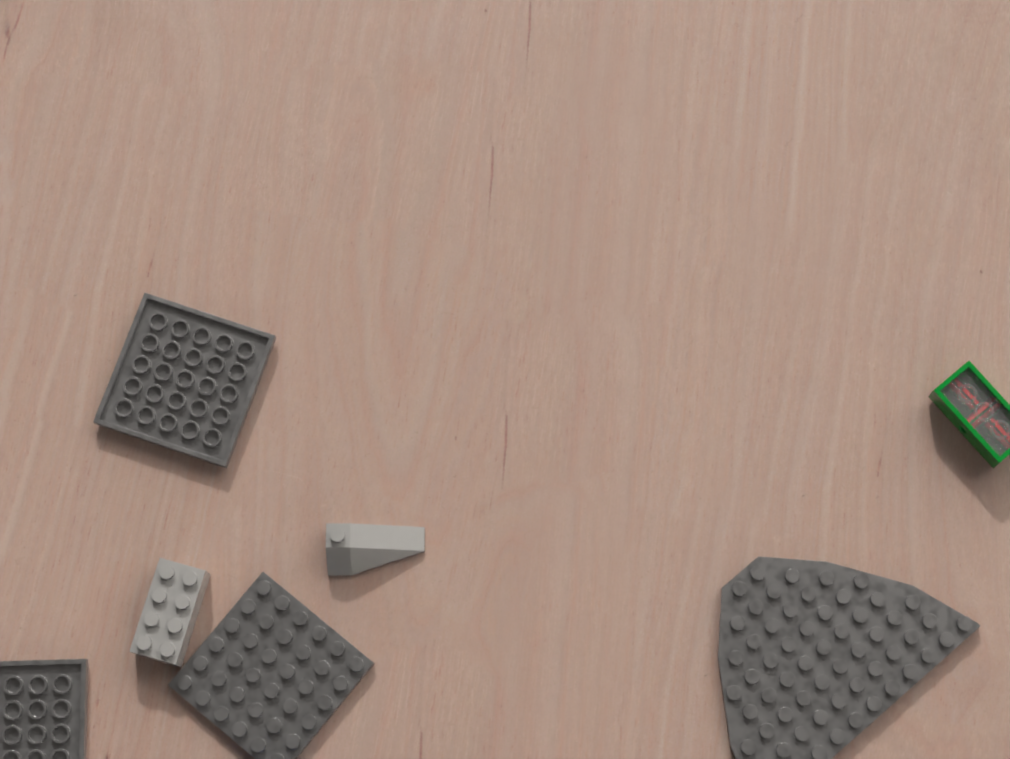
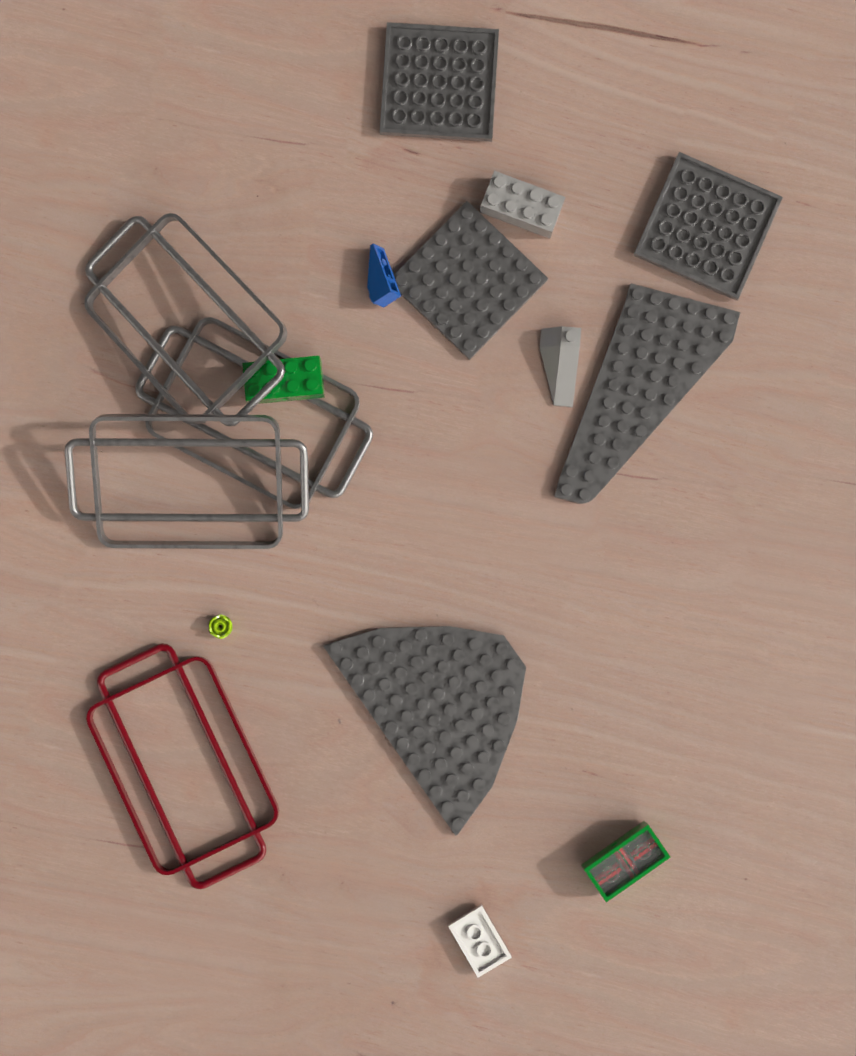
camera: 85 degrees right, 10 degrees up
(366, 436) = (649, 367): none -> flat silver wing

